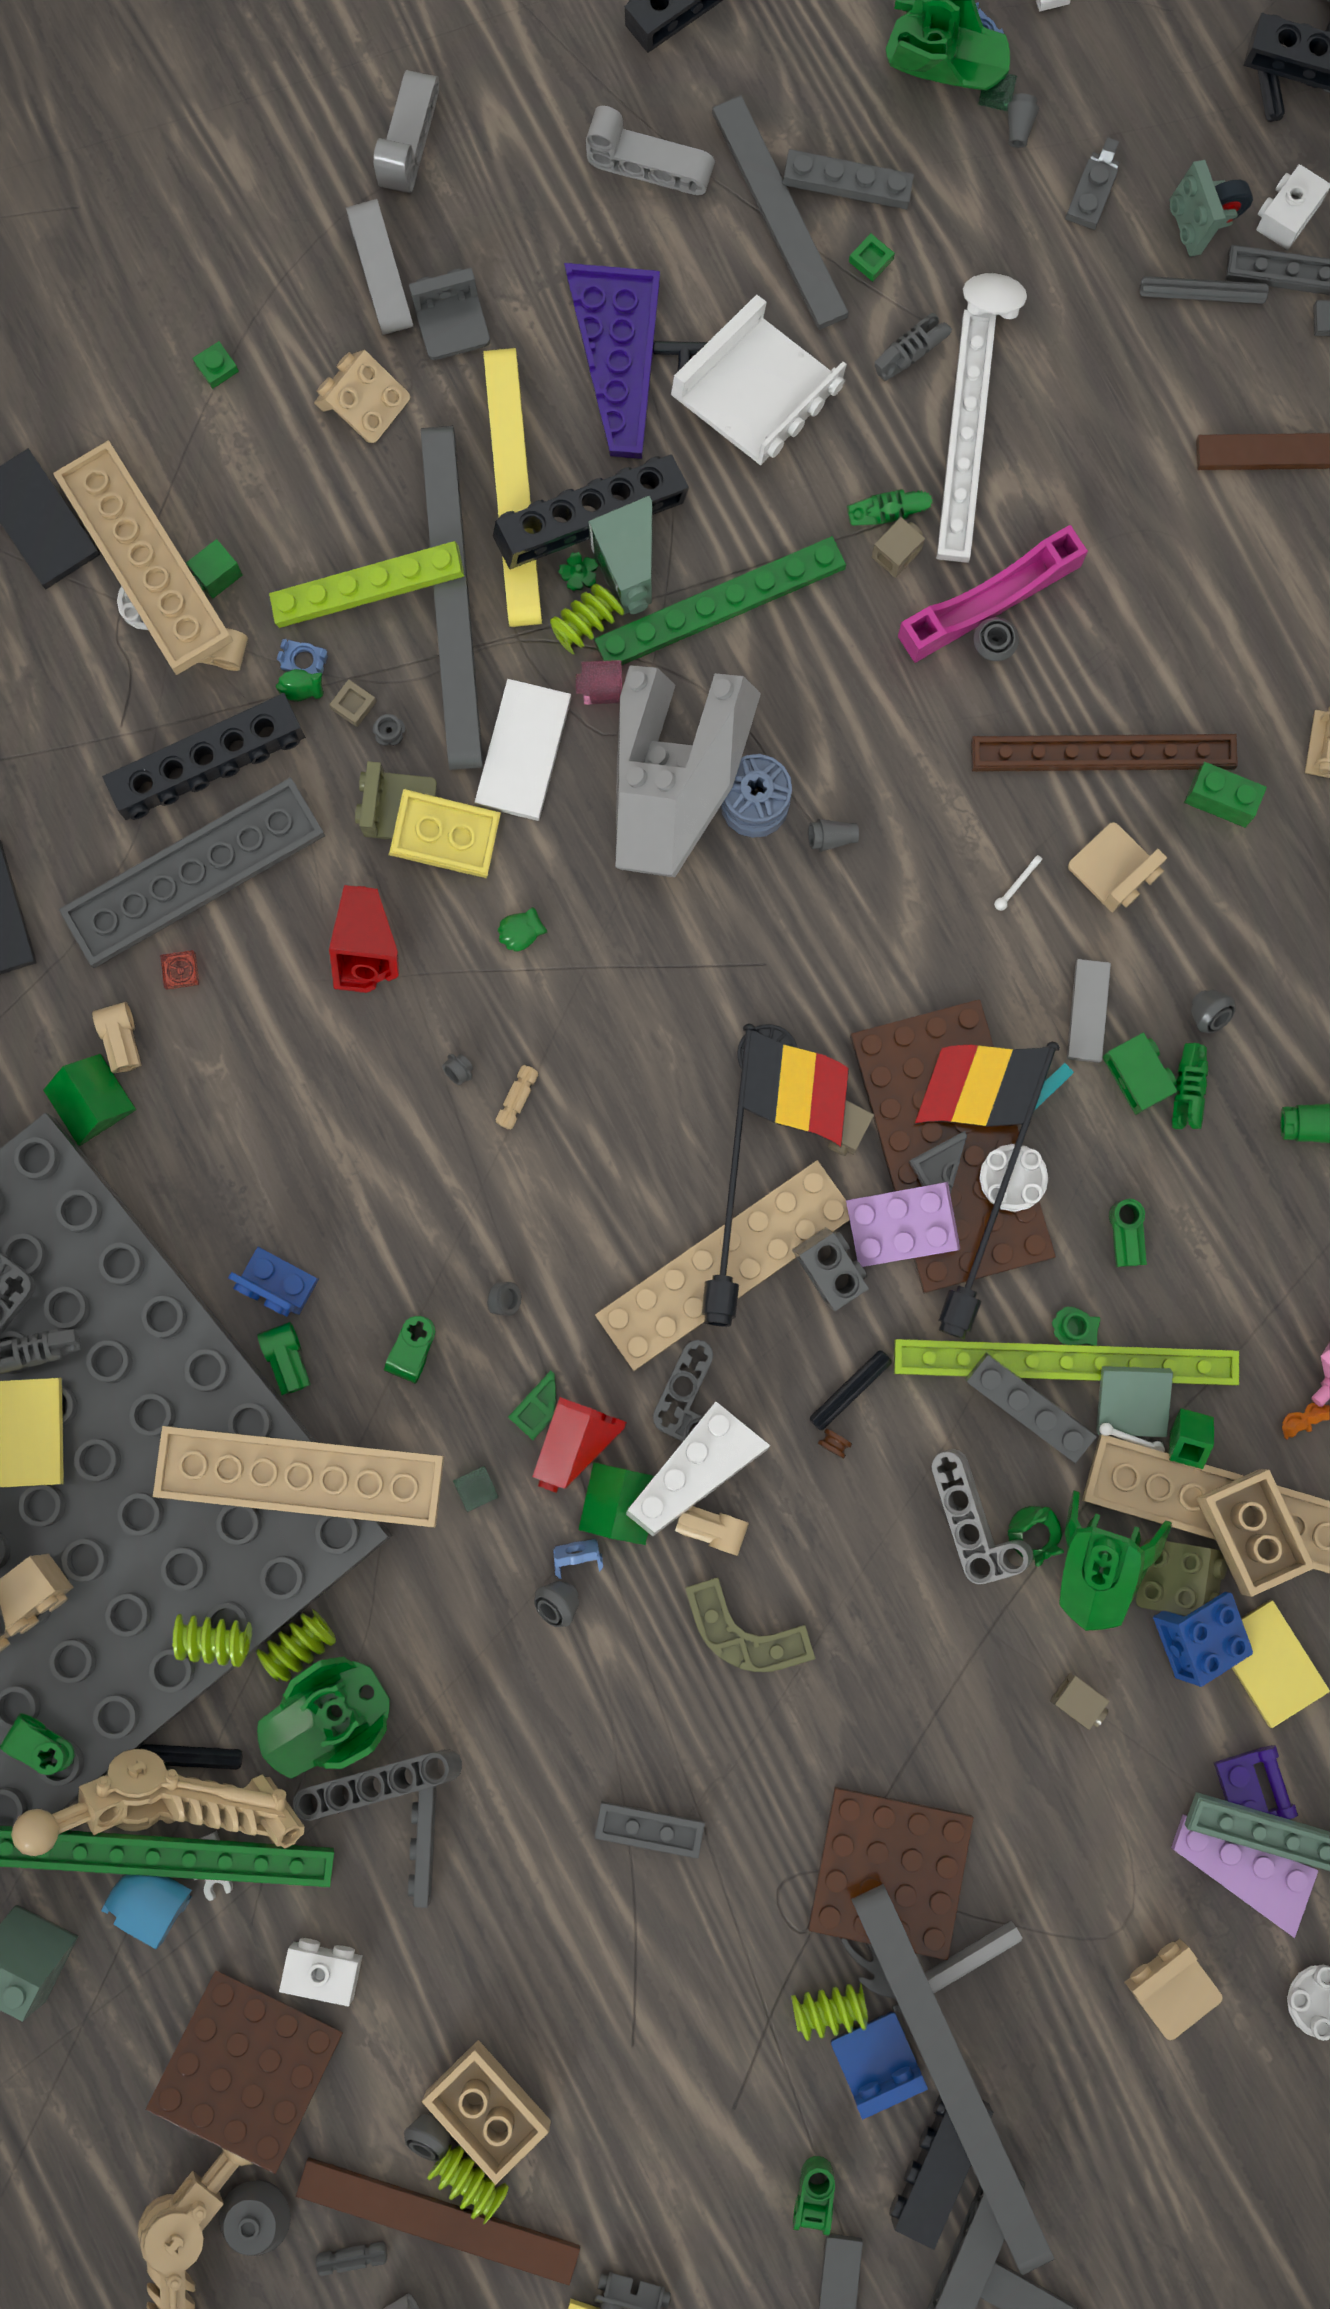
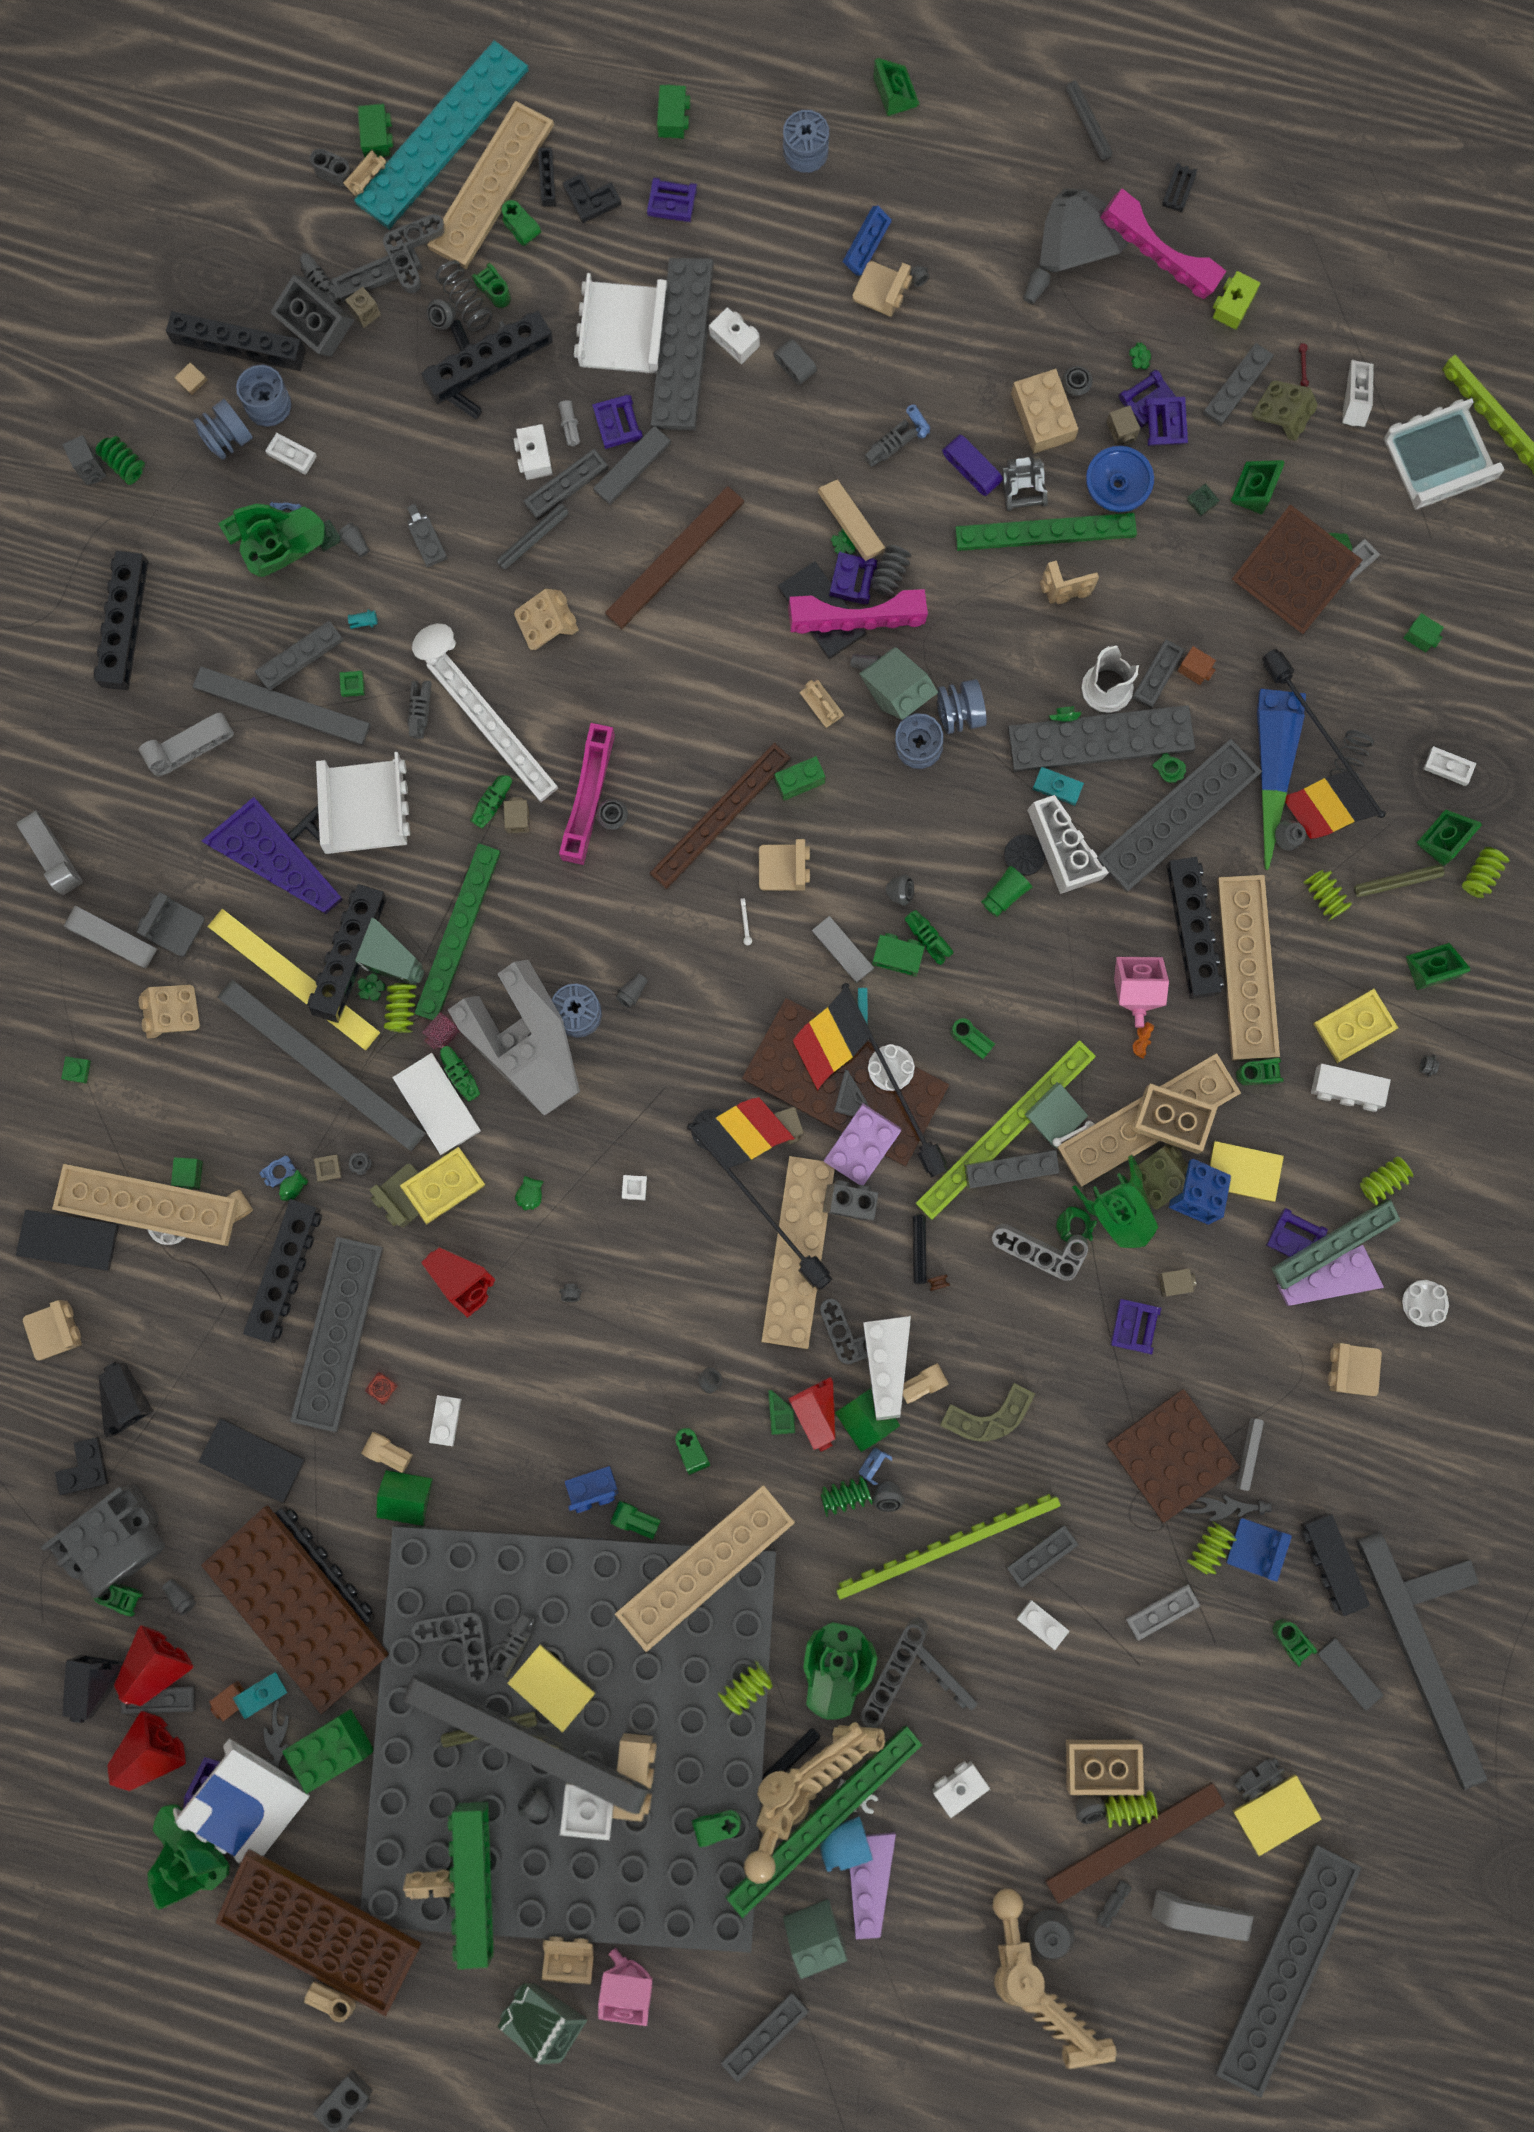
camera: 45 degrees left, 0 degrees up
(131, 1971) = (870, 1886): none -> lavender wing
(207, 1065) = (445, 1420): none -> white plate
(244, 2072) = (974, 1872): reddish brown plate -> none
(296, 1647) = (787, 1650): lime piece -> none
(366, 584) = (273, 1103): lime plate -> none
(476, 1489) = (792, 1484): clear green plate -> none
(515, 1556) = (845, 1496): none -> green piece
(517, 1097) = (613, 1276): tan axle -> none
(575, 742) = (459, 1074): none -> green hinge
(577, 1899) = (1042, 1624): none -> white plate
(579, 1722) = (956, 1542): none -> lime plate
(629, 1030) = (634, 1187): none -> white plate
(712, 2019) = (1162, 1612): none -> light grey tile
(948, 205) = (363, 619): none -> teal pin
(953, 2080) = (1297, 1518): dark grey beam -> none
(983, 1692) = (1128, 1324): none -> dark purple plate
(1075, 1327) = (993, 1108): green animal -> none
(1133, 380) = (545, 618): none -> tan bracket
(1191, 1438) = (1100, 1105): green brick -> none
(1206, 206) = (492, 495): sand green plate -> none

